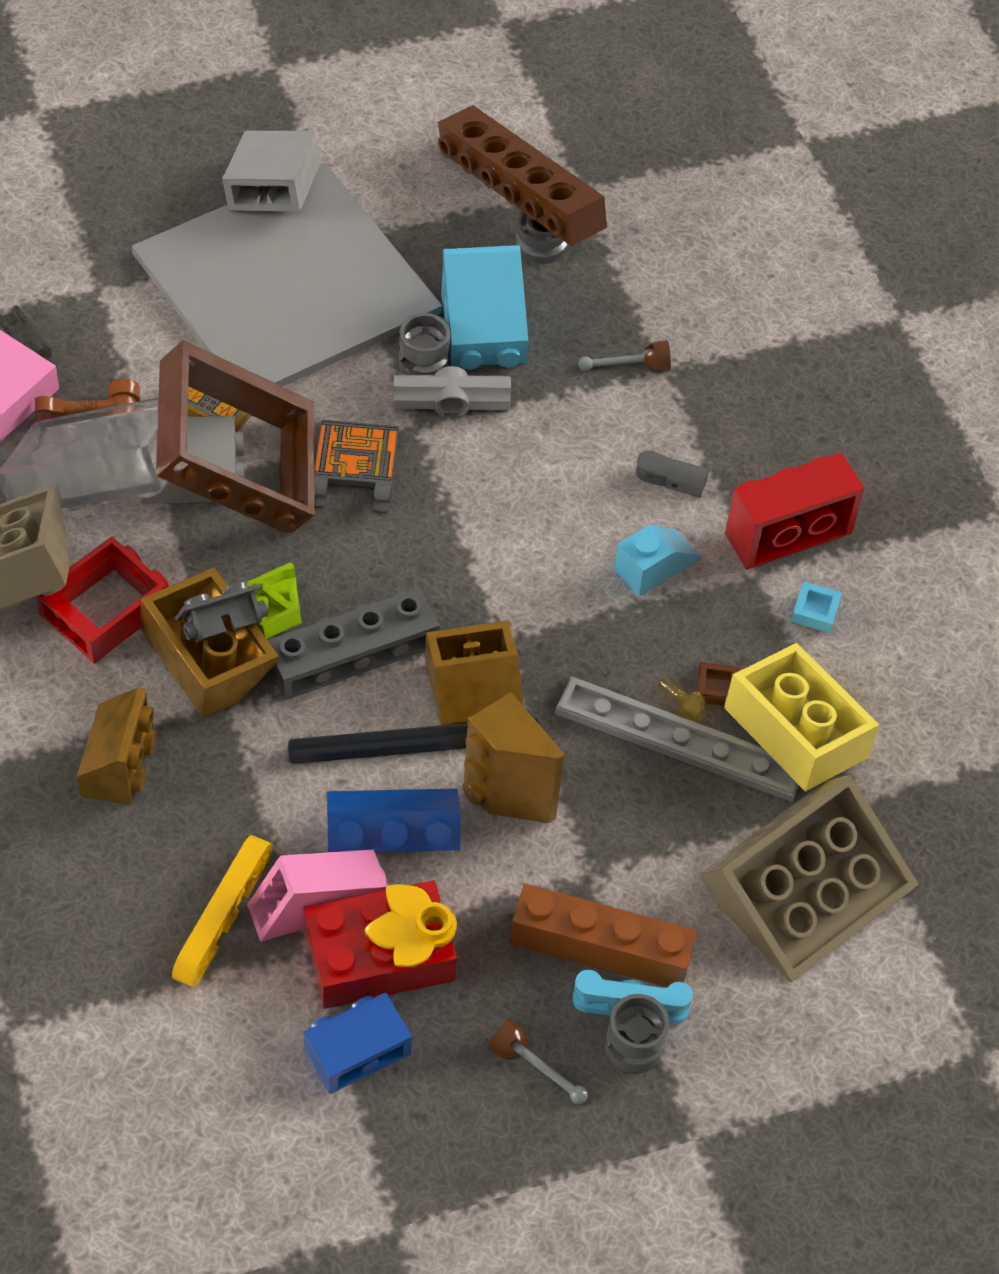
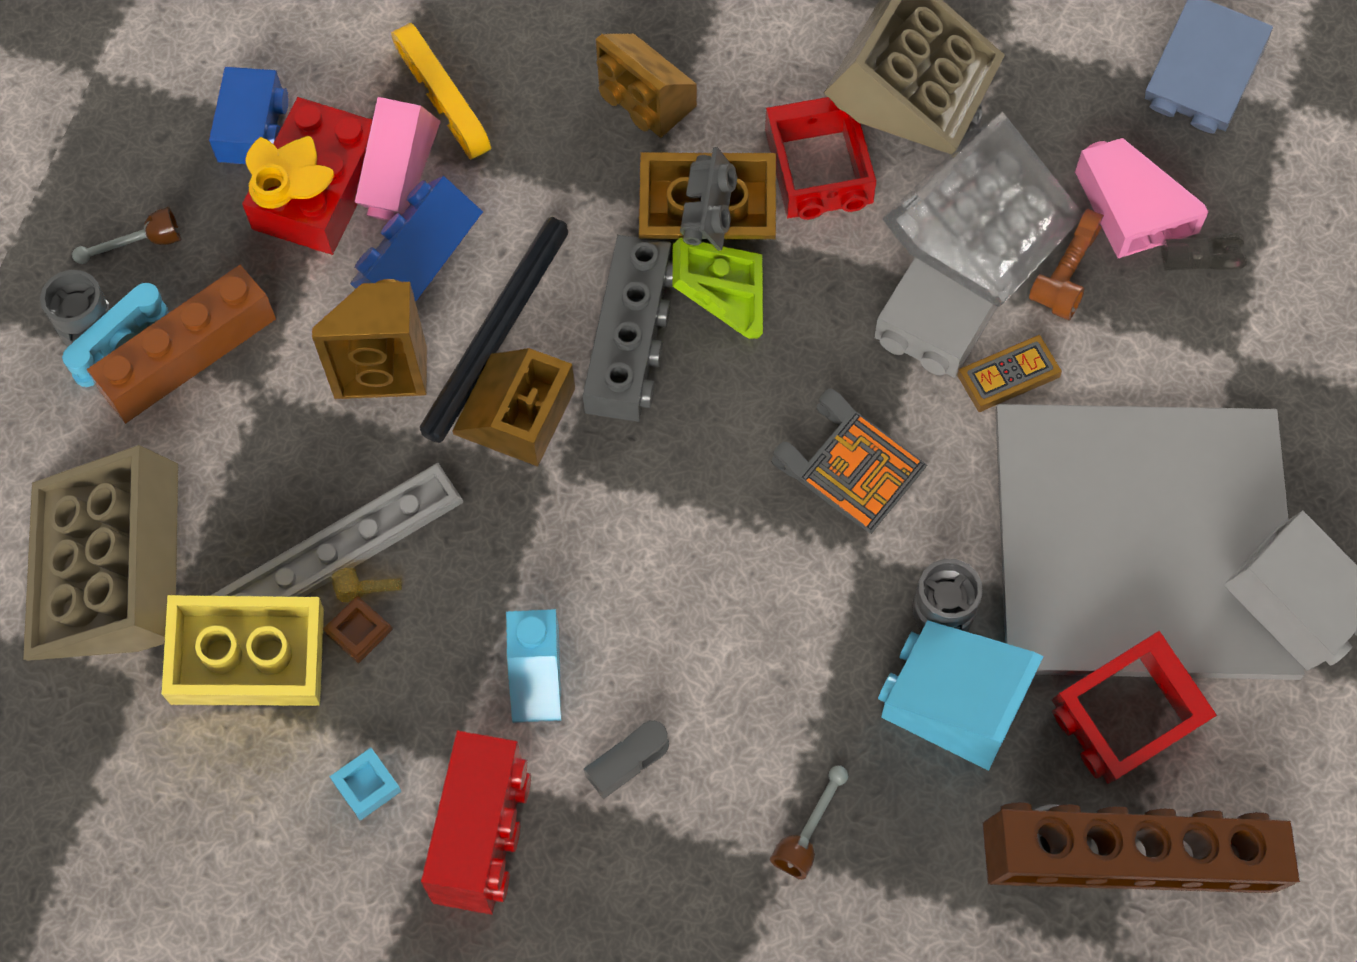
camera: 130 degrees right, 10 degrees up
(255, 397) = (834, 304): reddish brown window -> none
(410, 243) = (1173, 682): none -> red window
(451, 392) = (877, 601): light grey piece -> none

